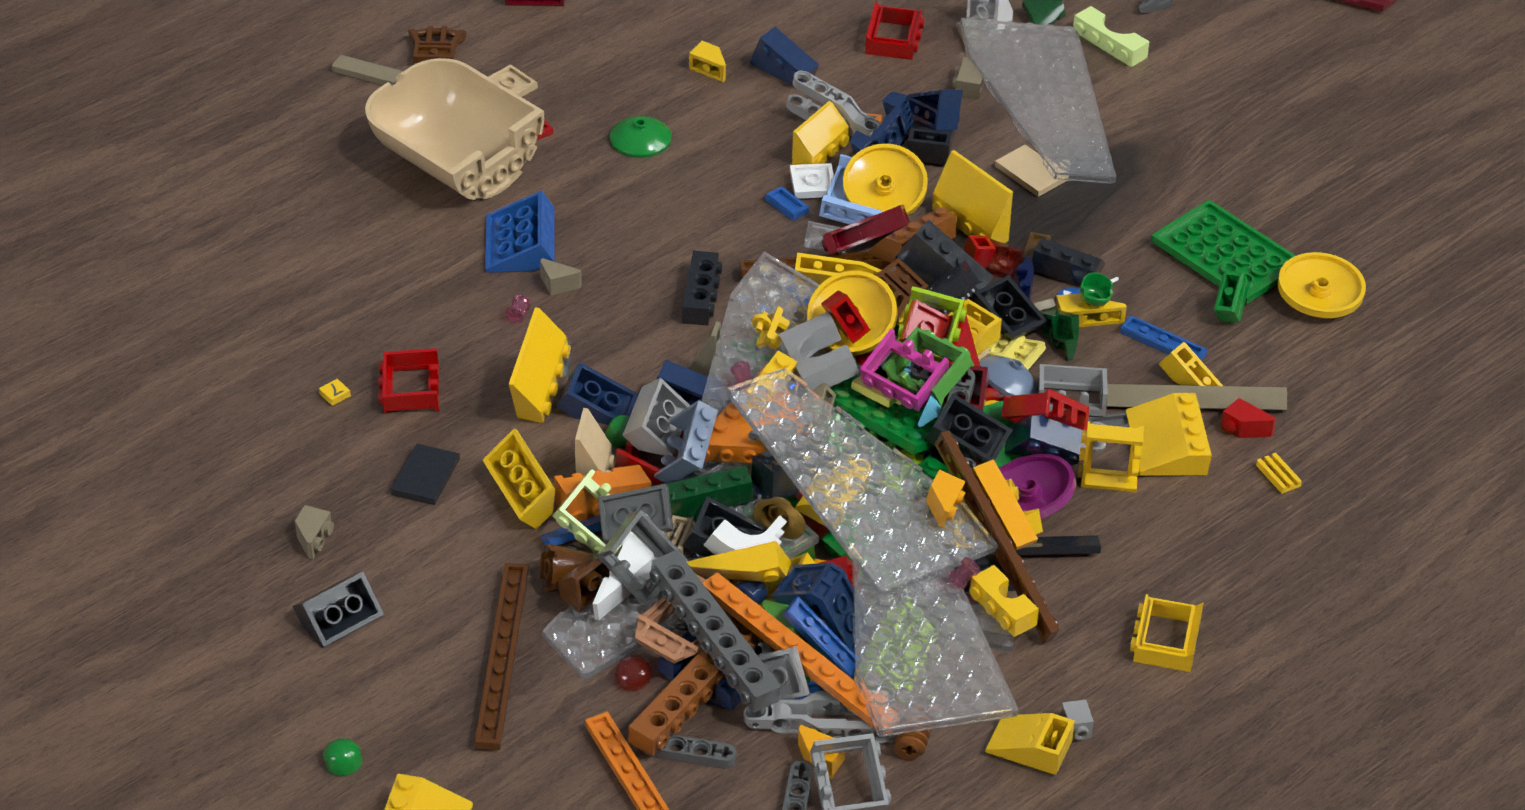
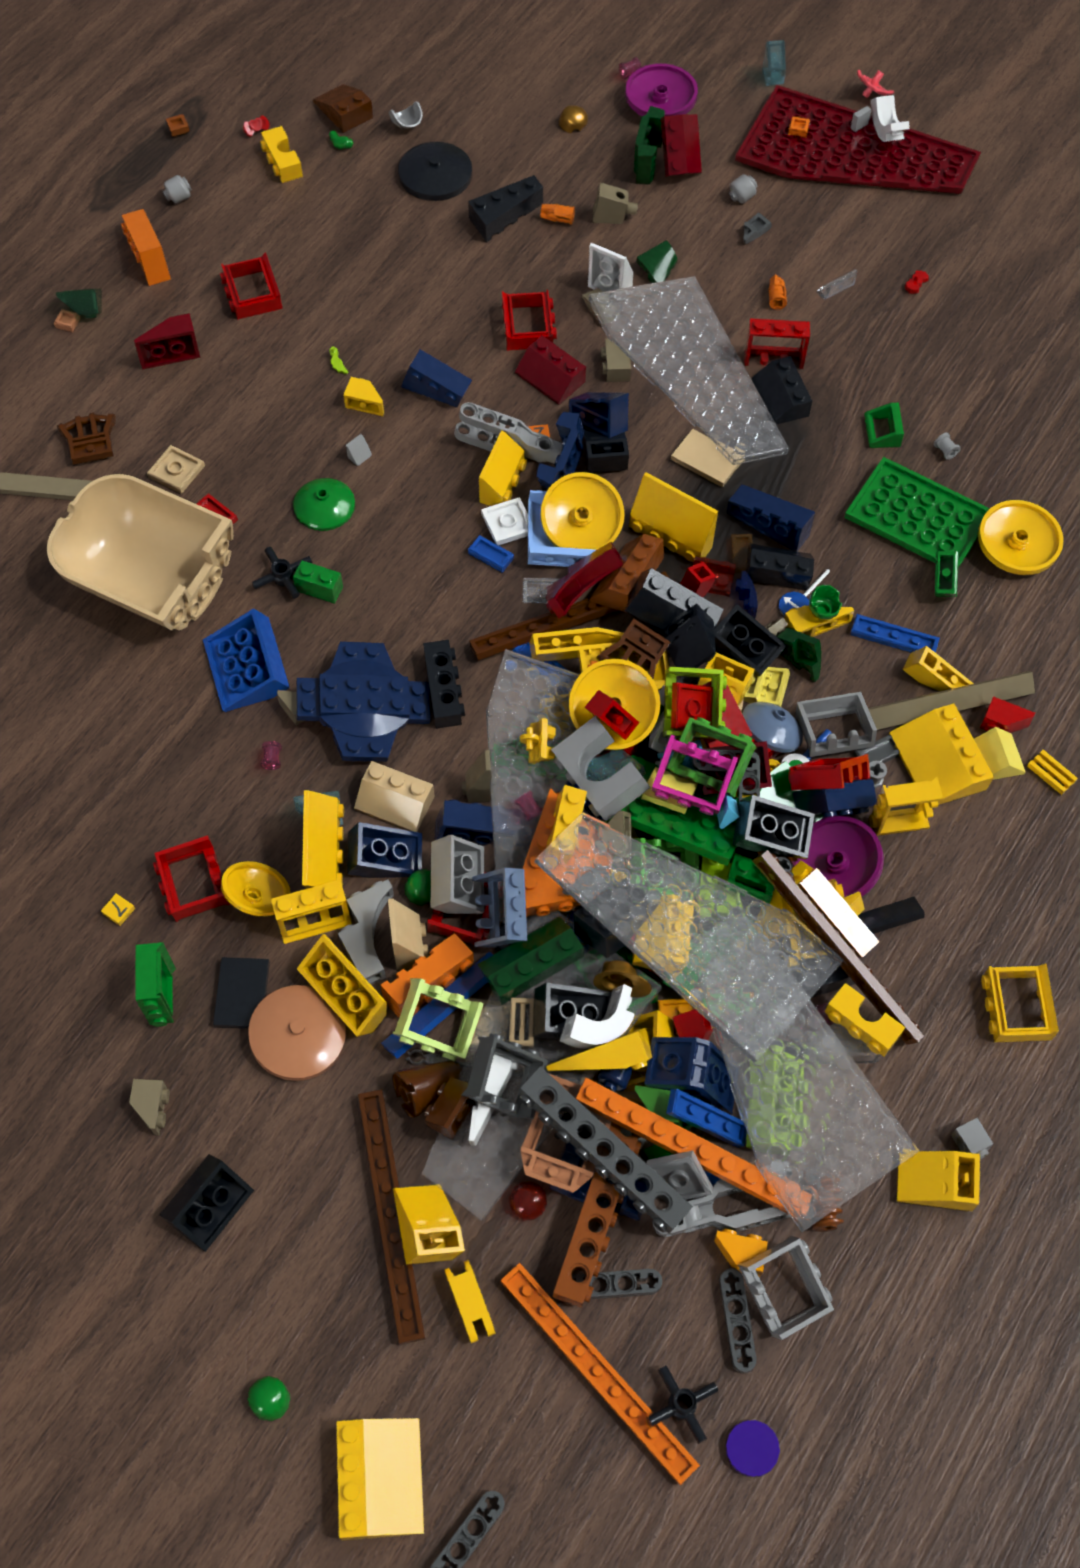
camera: 15 degrees left, 20 degrees up
(344, 451) = (154, 983): none -> green window
(465, 510) = (296, 1033): none -> nougat dish
(466, 397) = (252, 886): none -> yellow dish
(511, 403) = (310, 901): none -> yellow window
(532, 666) = (427, 1225): none -> yellow slope
(550, 728) = (469, 1301): none -> yellow piece
(554, 451) = (359, 938): none -> light grey arch
(579, 177) = (281, 579): none -> black bar
(611, 189) = (318, 581): none -> green brick
(619, 283) = (363, 701): none -> dark blue plate
(623, 358) = (394, 797): none -> tan slope
(651, 500) = (477, 1013): dark grey tile -> none
(688, 100) = (358, 450): none -> light grey slope
(693, 31) = (336, 362): none -> lime piece
(901, 71) = (551, 370): none -> dark red slope
(944, 495) = (781, 925): light orange slope -> none
(964, 572) = (824, 1004): clear pink bush -> none
(1076, 223) = (772, 516): none -> dark blue wedge
(1125, 47) = (747, 290): yellowish green arch -> none
(1128, 131) = (783, 391): none -> black slope
(1136, 71) = (781, 329): none -> red window
(1156, 54) = (777, 293): none -> orange hinge
(1221, 59) = (838, 285): none -> clear slope
(1225, 188) = (891, 412): none -> green tile
(1229, 447) = (1000, 753): none -> light yellow slope
(1277, 202) = (947, 446): none -> light grey bush
(1305, 73) = (916, 281): none -> red piece

